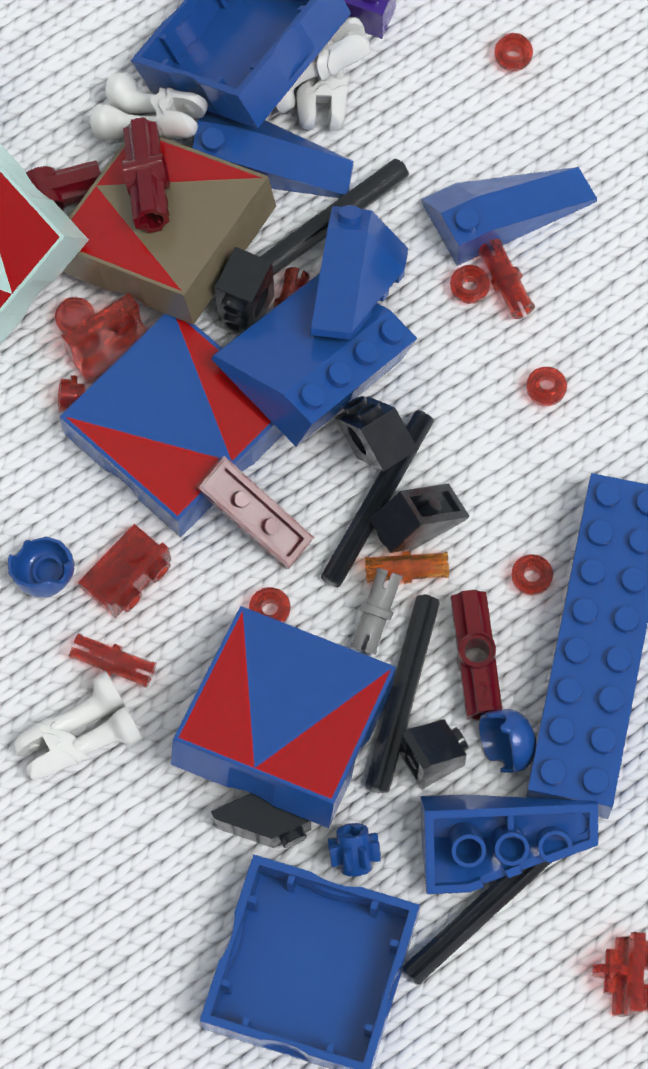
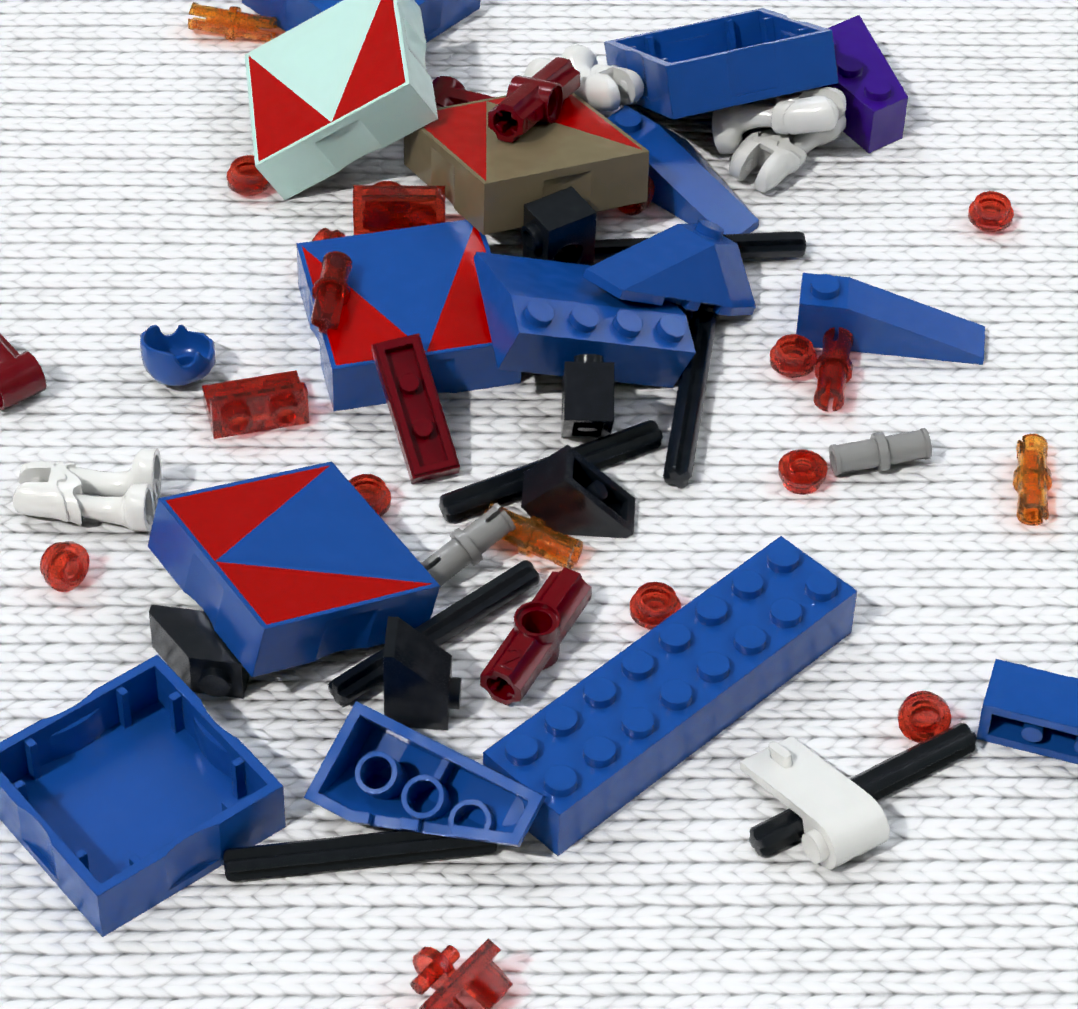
camera: 30 degrees right, 25 degrees down
(111, 808) = (64, 565): none -> clear red plate
(112, 660) = (177, 456): clear red pin -> none
(129, 454) = (331, 291): none -> clear red axle
(354, 849) = (265, 721): blue gear -> none
(432, 380) = (690, 402): none -> black axle
(507, 739) = (505, 708): blue hair -> none
(588, 337) = (880, 451): none -> light grey pin

